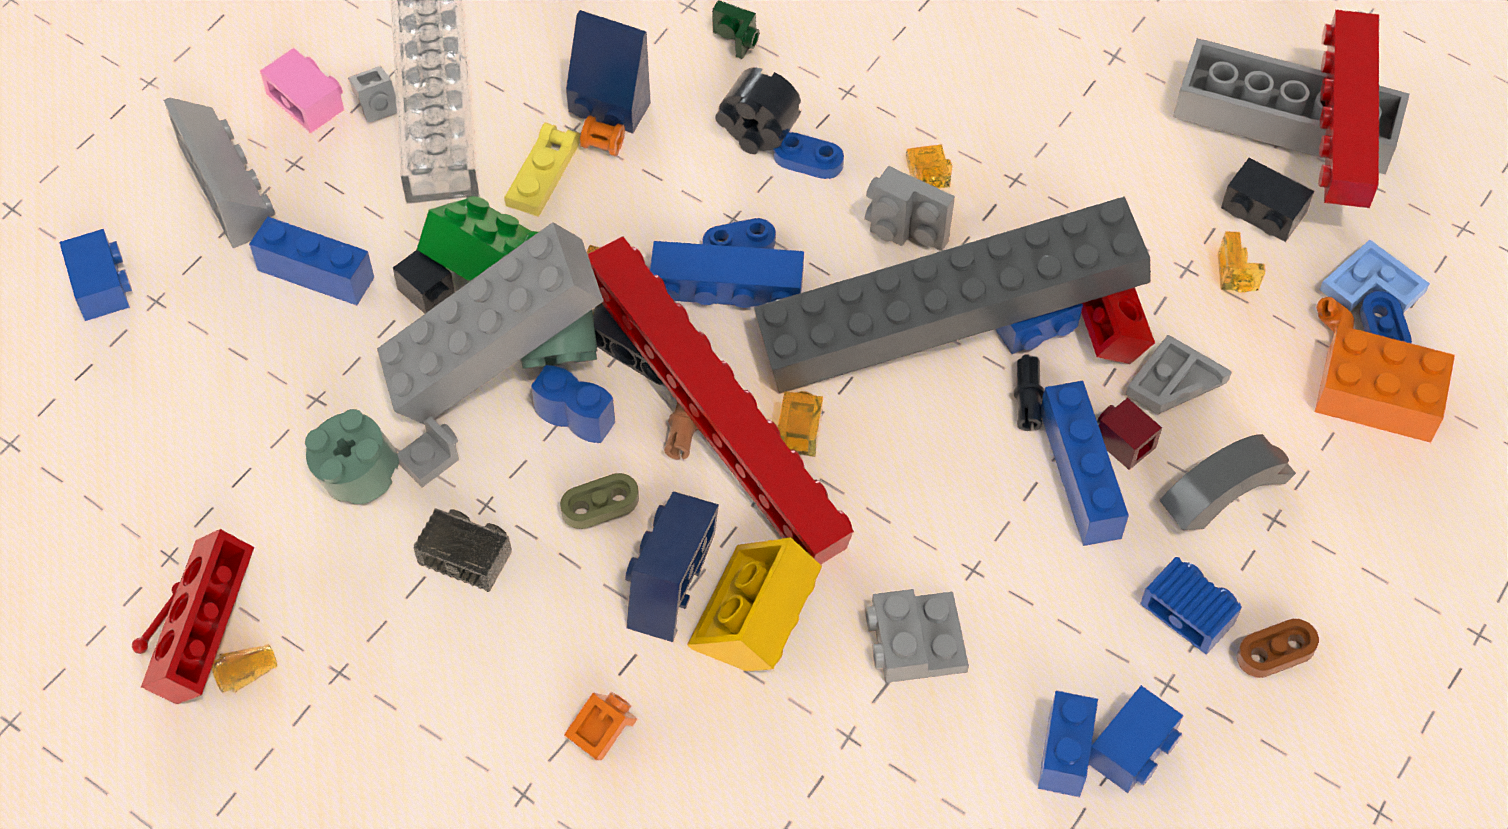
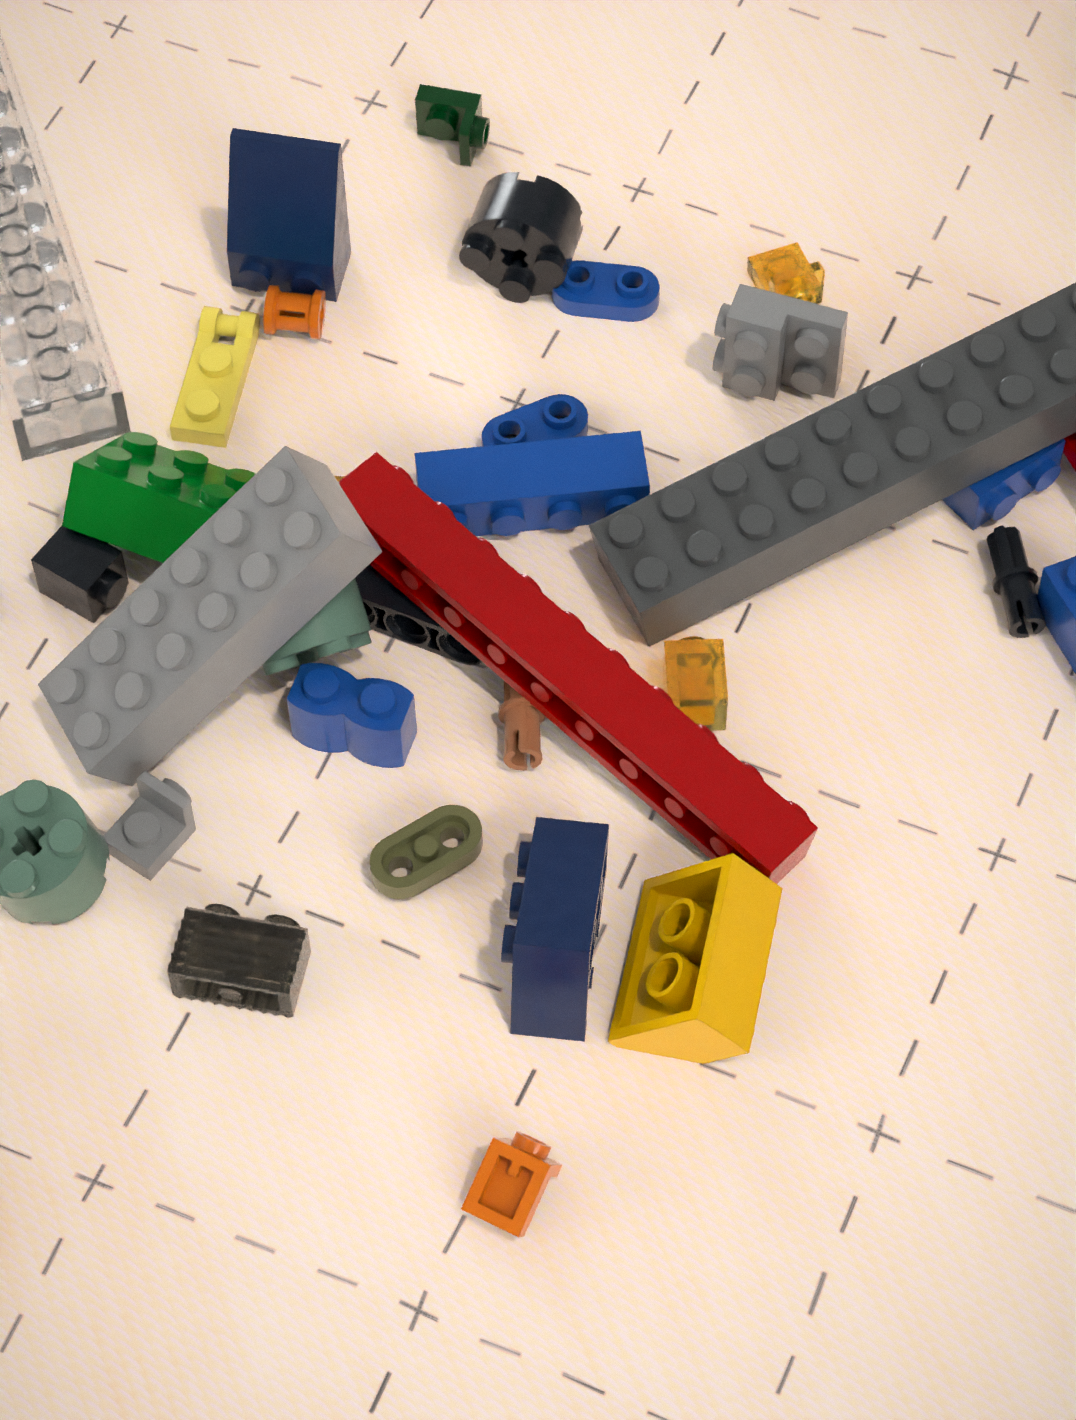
camera: 10 degrees left, 0 degrees up
(916, 635) = (942, 964): light grey plate -> none

